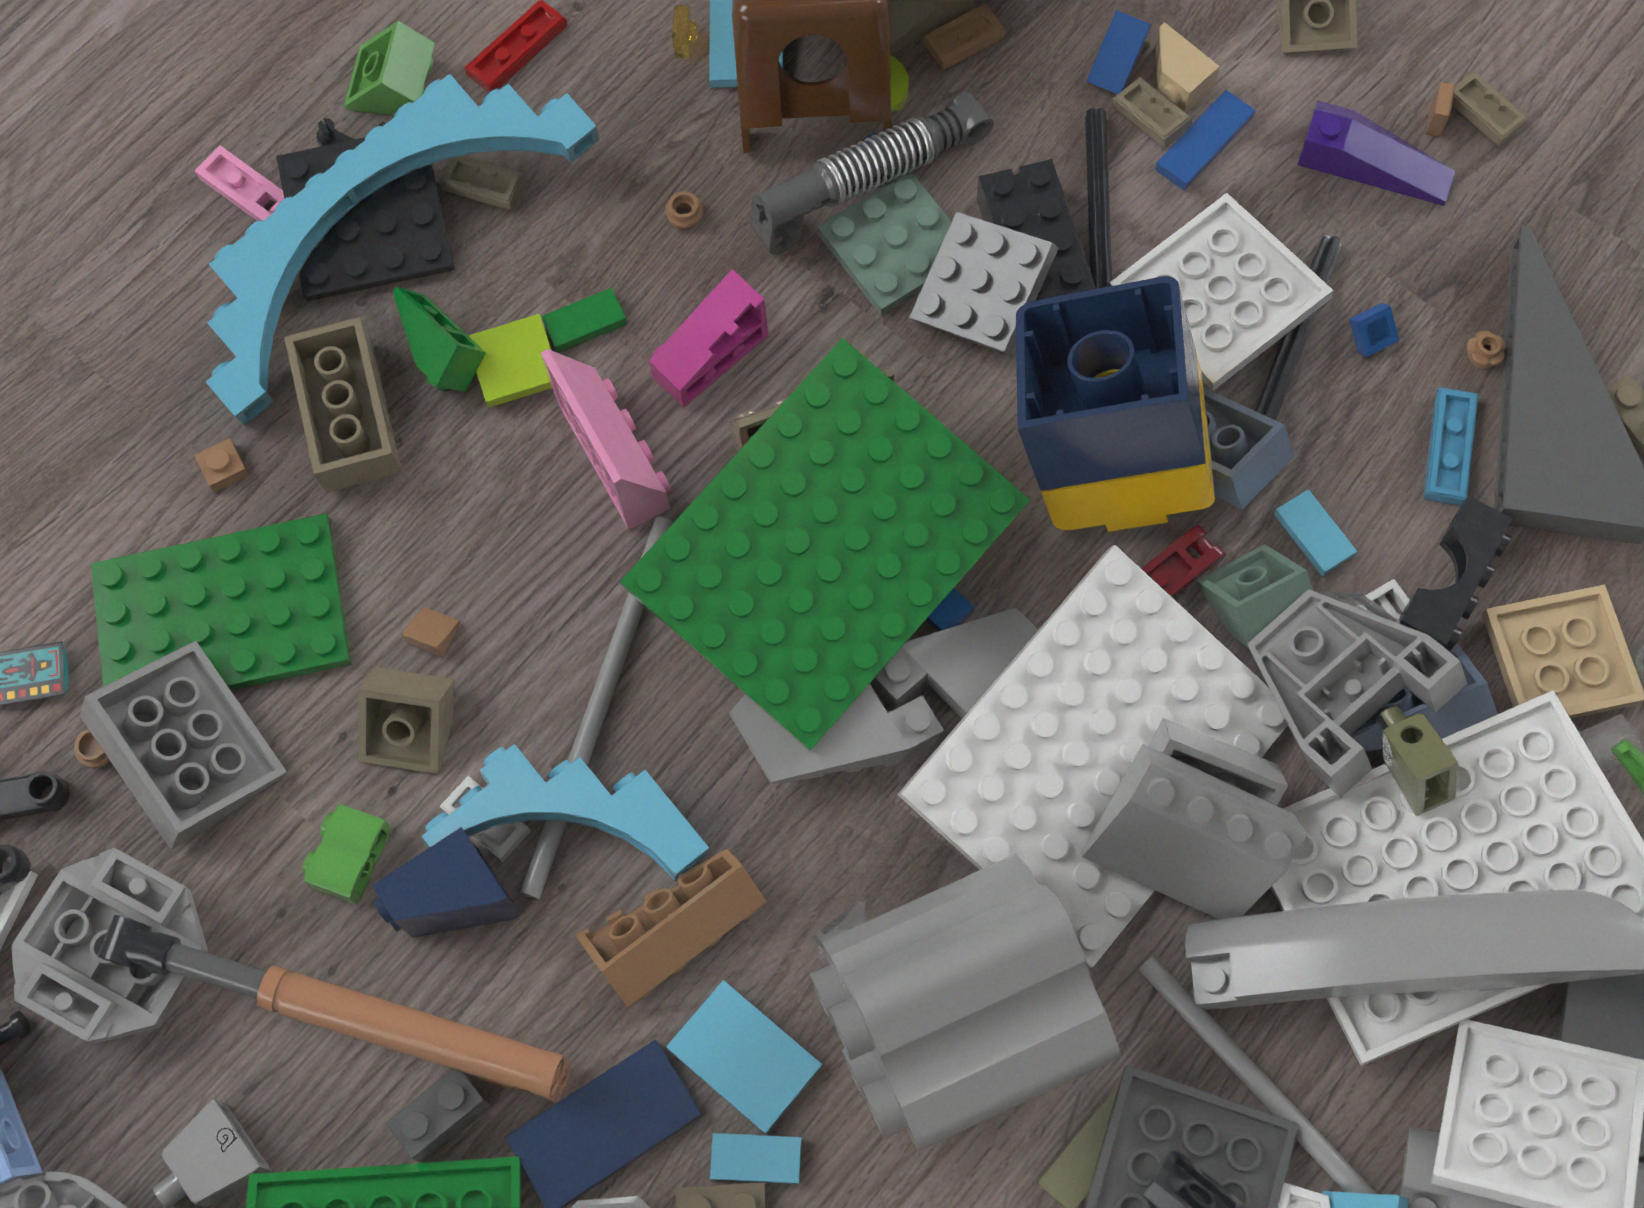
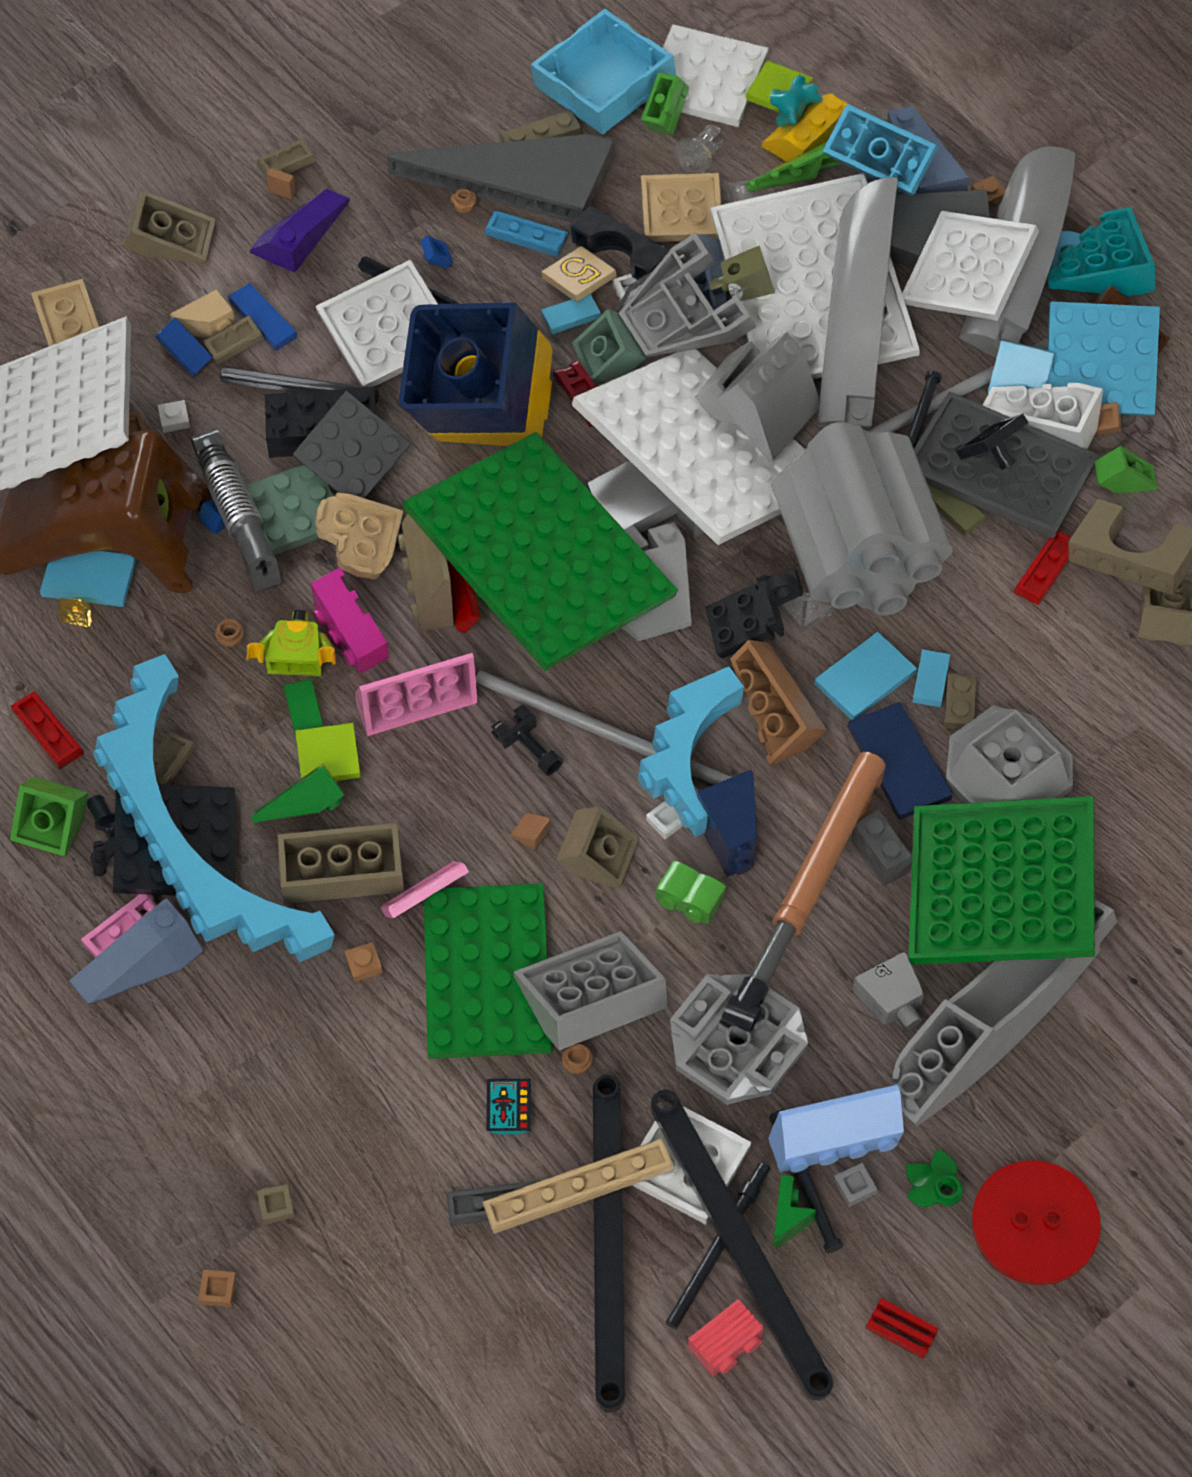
camera: 85 degrees left, 10 degrees down
(196, 206) = (148, 950): none -> sand blue wedge
(322, 513) = (424, 889): none -> bright pink tile
(537, 633) = (549, 761): none -> black bar
(665, 283) = (294, 647): none -> lime torso
(805, 865) = (752, 612): none -> black plate
(868, 311) = (361, 531): none -> tan plate
(1014, 73) = (173, 416): none -> white plate
(1223, 1079) = (932, 379): none -> black bar
(1388, 529) = (579, 274): none -> tan tile

